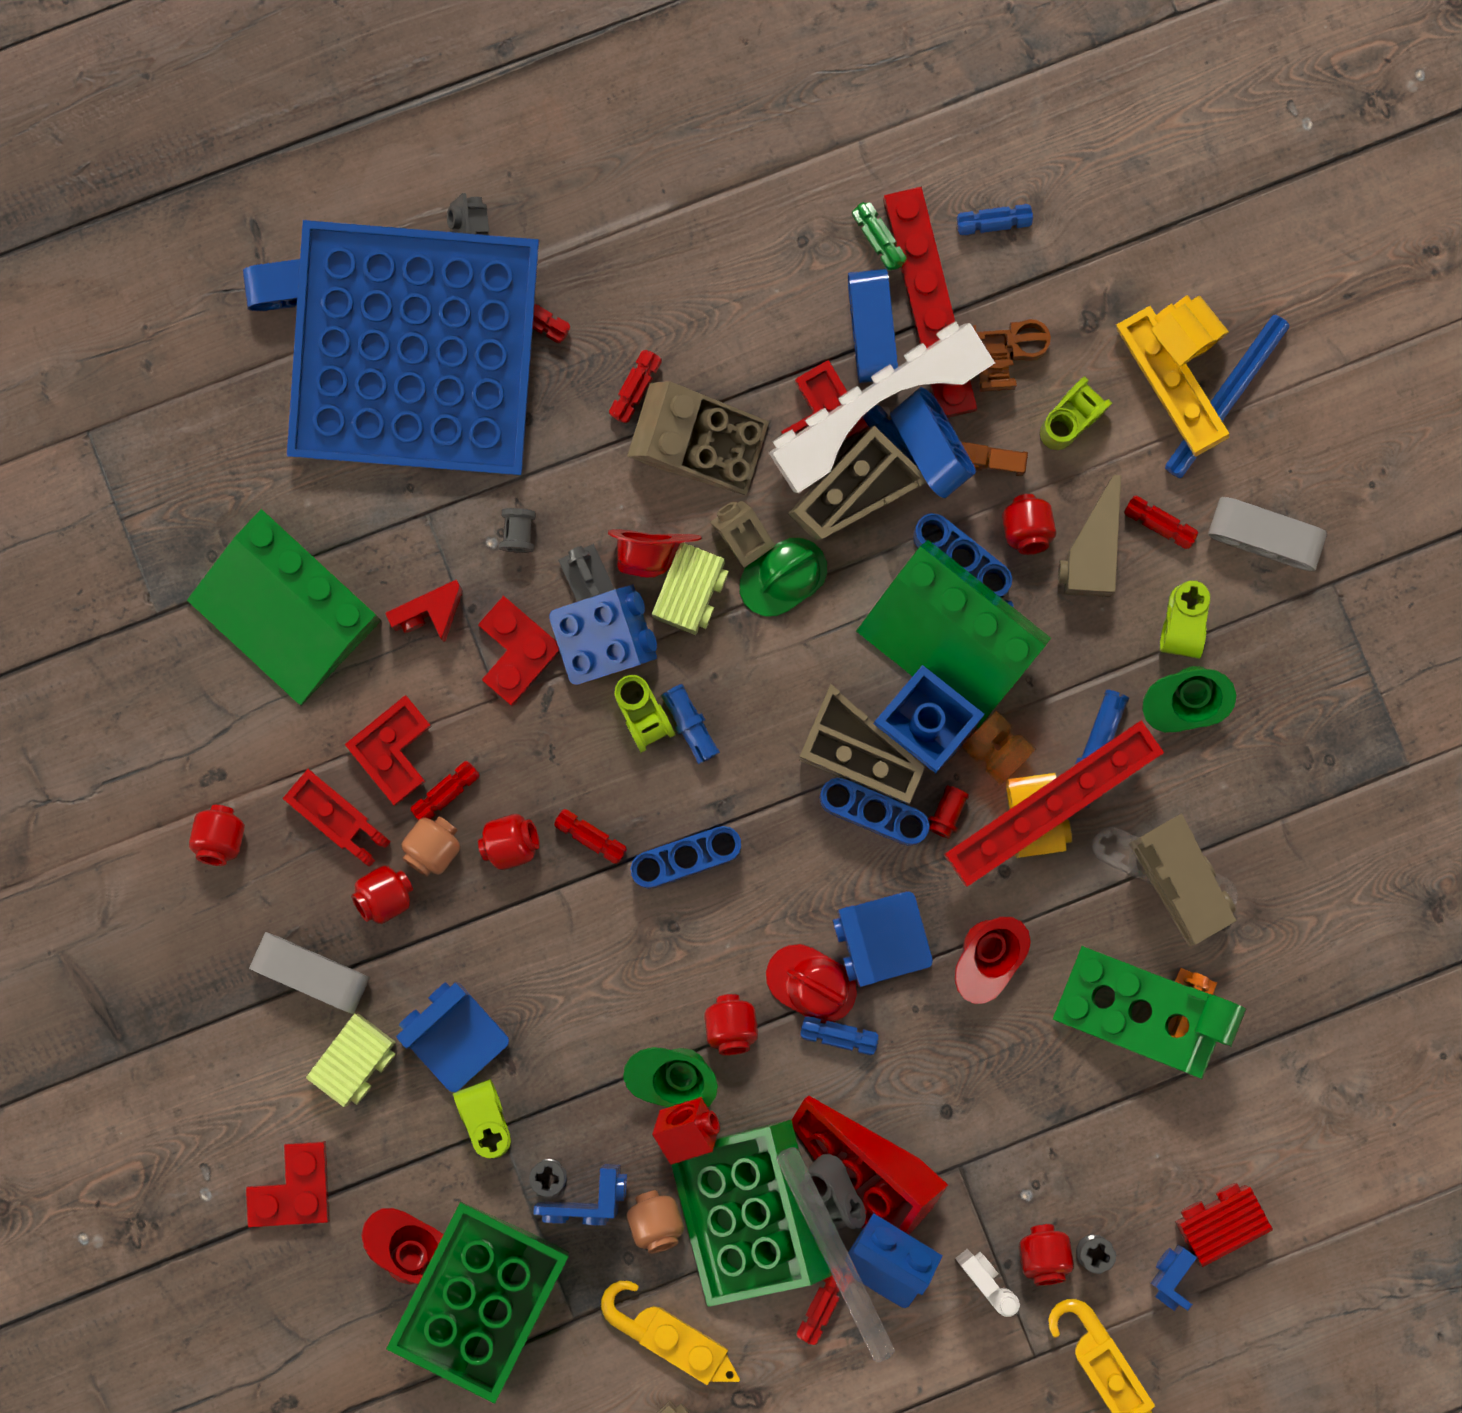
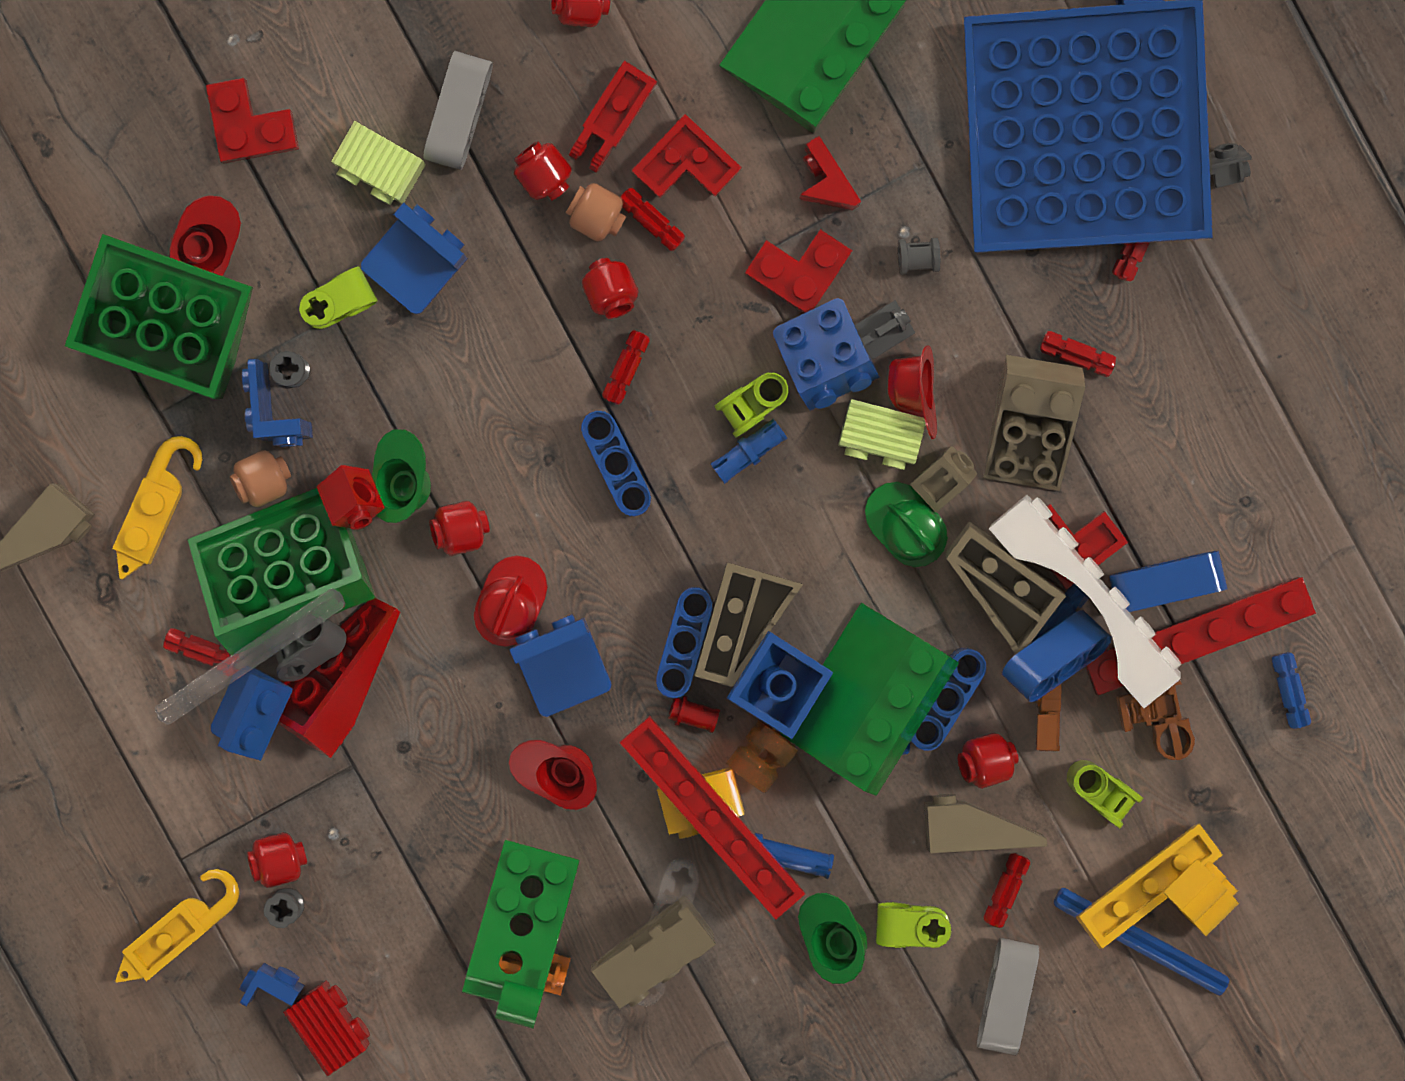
camera: 85 degrees right, 5 degrees up
(839, 1035) = (463, 634): blue axle -> none
(879, 236) = (1259, 577): green axle -> none
(982, 1274) = (246, 802): white plate -> none

